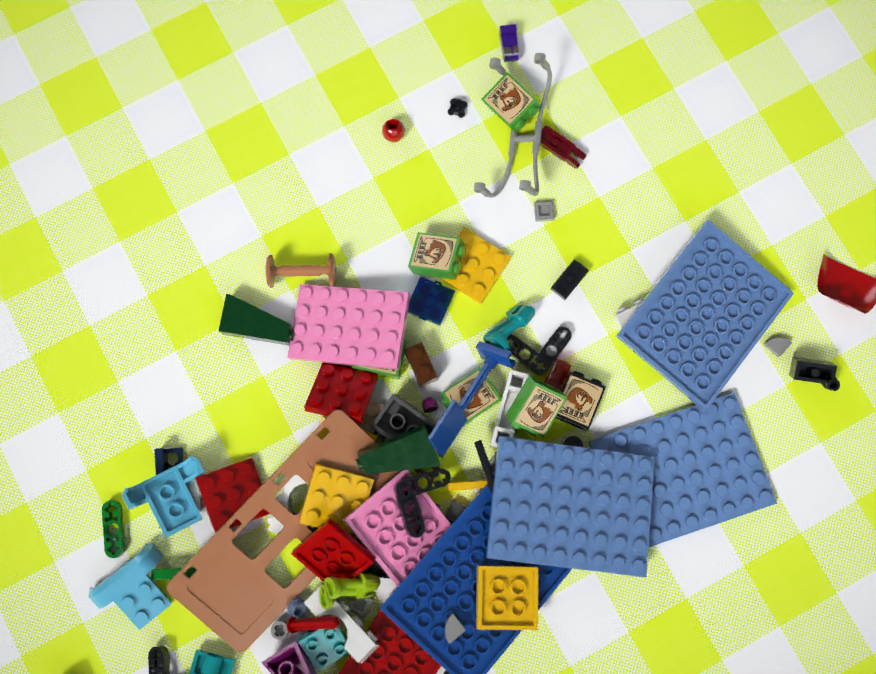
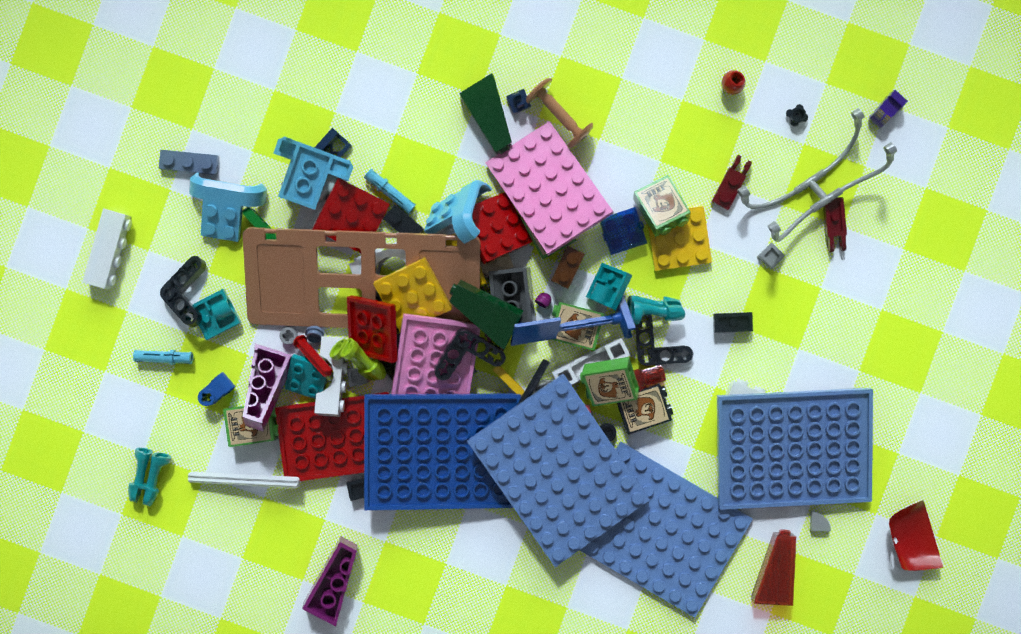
camera: 45 degrees right, 10 degrees up
(75, 587) = (188, 162): none -> sand blue plate
(119, 543) = (246, 164): green beam -> none
(242, 449) = (383, 186): none -> medium azure pin
(265, 294) = (518, 101): none -> dark blue tile
(272, 460) = (401, 221): none -> black plate
(304, 406) = (458, 211): none -> medium azure piece
(453, 628) = (396, 459): light grey tile -> none
(454, 511) = (482, 387): dark grey tile -> none
(462, 346) = (609, 286): none -> teal plate
(465, 195) = (730, 184): none -> dark red hinge
(507, 598) = (452, 479): yellow plate -> none
(511, 102) = (837, 155): brick -> none
(792, 409) = (777, 571): none -> clear red slope
(815, 371) = (821, 566): black hinge -> none

